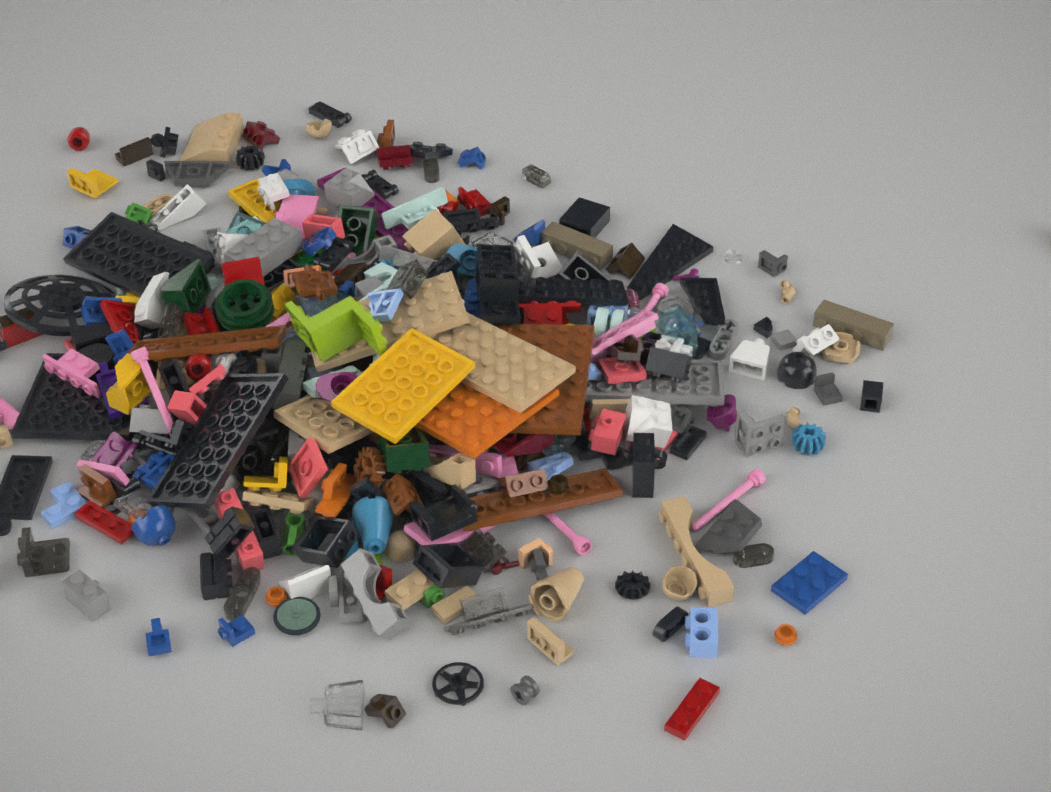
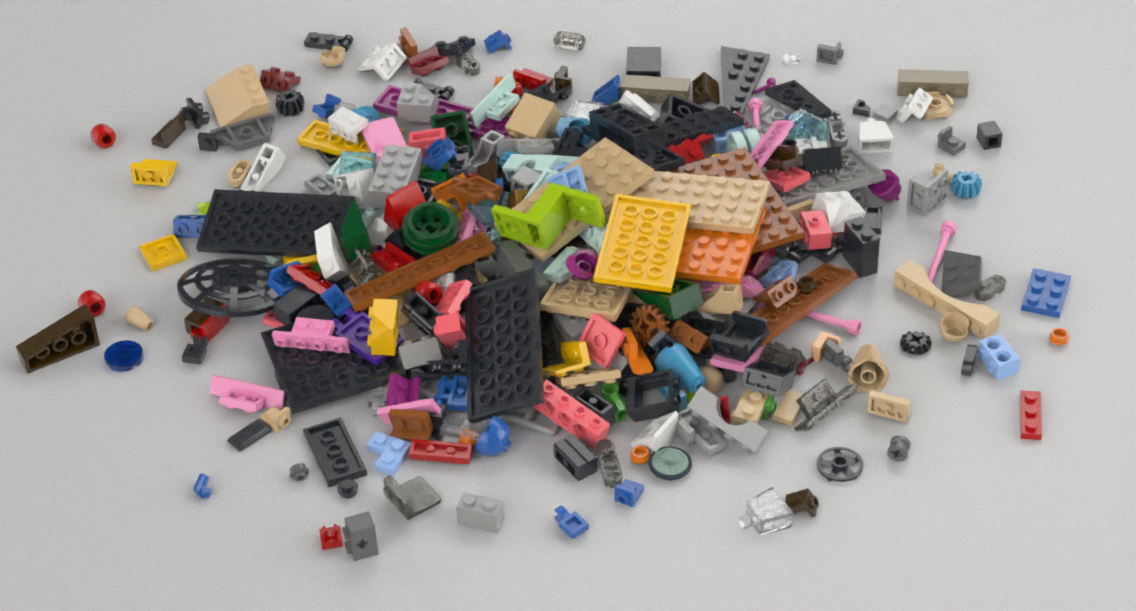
camera: 25 degrees left, 0 degrees up
(41, 255) = (163, 252): none -> yellow tile
(136, 212) = (229, 183): bright green bracket -> none
(141, 357) = (394, 297): bright pink piece -> none
(229, 532) = (576, 413): black brick -> none
(409, 278) = (574, 153): clear smoke bracket -> none
(788, 291) = (858, 72): tan arm -> none
(797, 370) = (916, 134): black cylinder -> none

